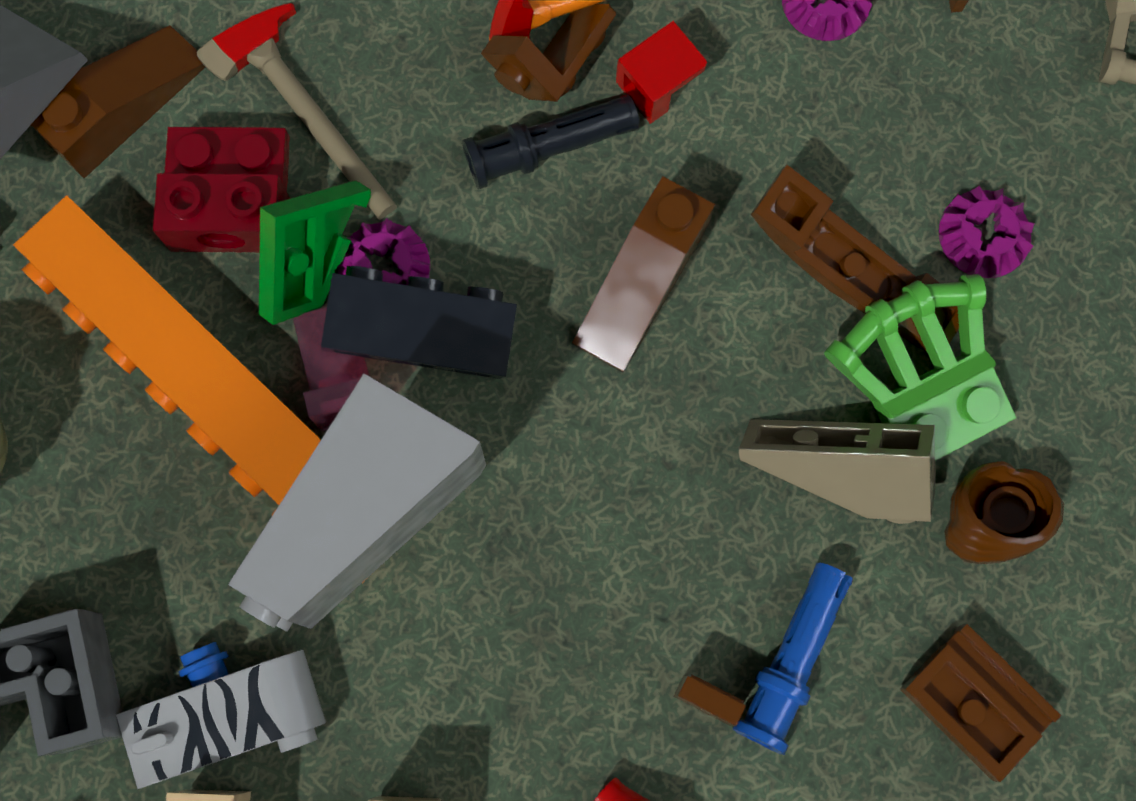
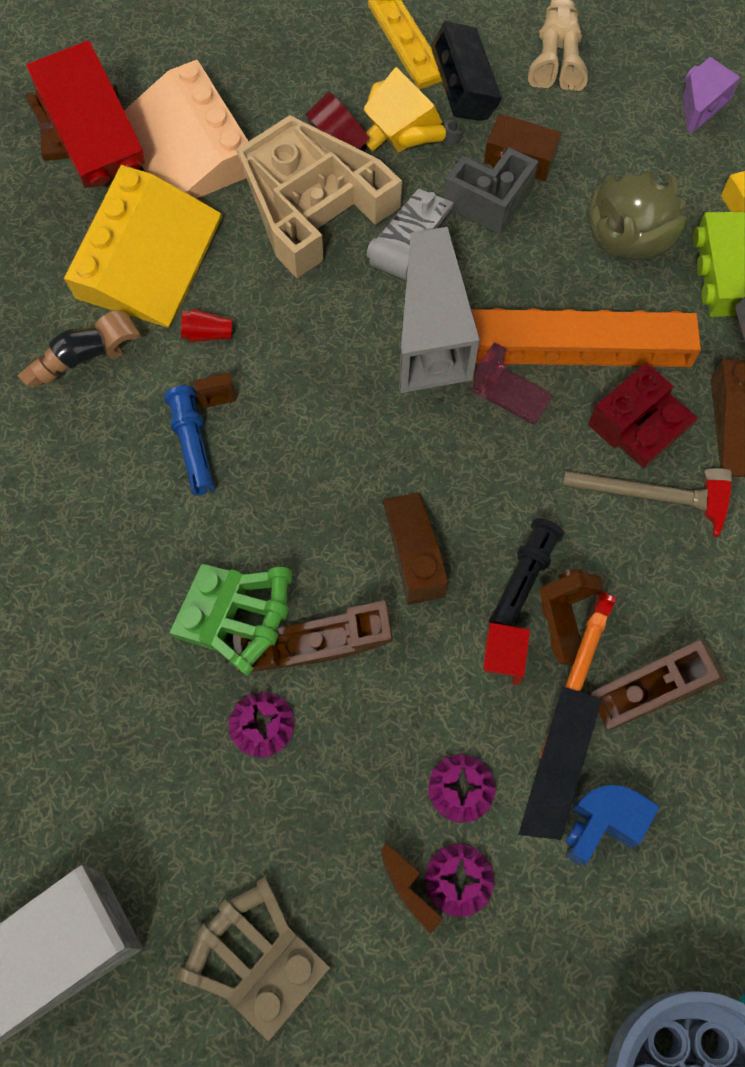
camera: 140 degrees right, 10 degrees down
(303, 248) = (576, 415): green wing -> none
(410, 252) = (529, 463): magenta gear -> none
(418, 323) = (491, 426): black brick -> none
(859, 466) = (236, 534): dark tan slope -> none
(980, 703) = (89, 487): reddish brown plate -> none
(1002, 513) = (137, 583): reddish brown hair -> none

